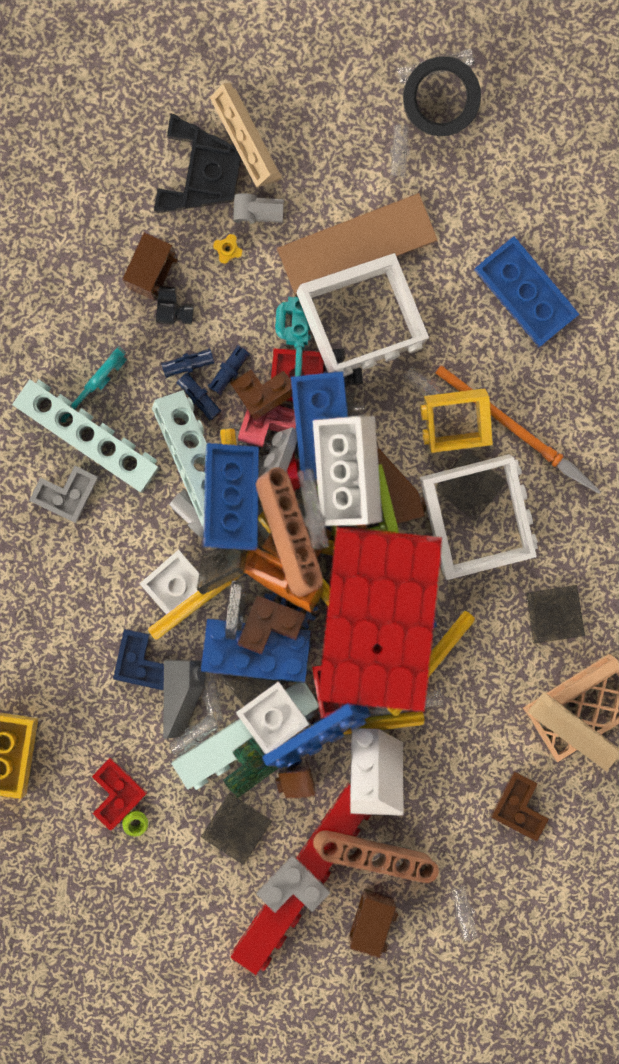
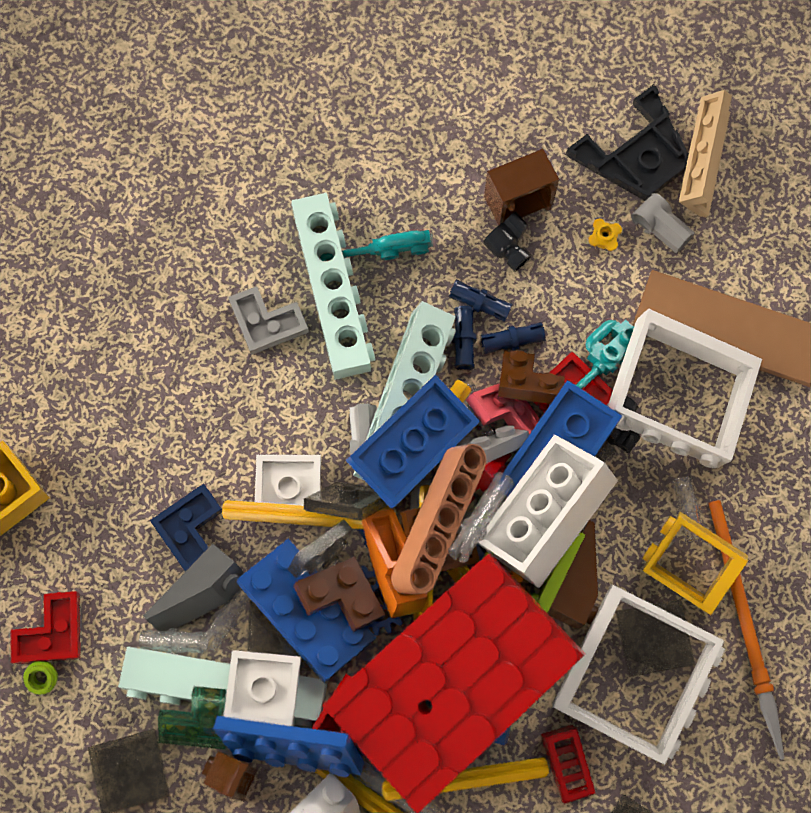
camera: 40 degrees right, 15 degrees down
(462, 591) = (557, 735): none -> red slope

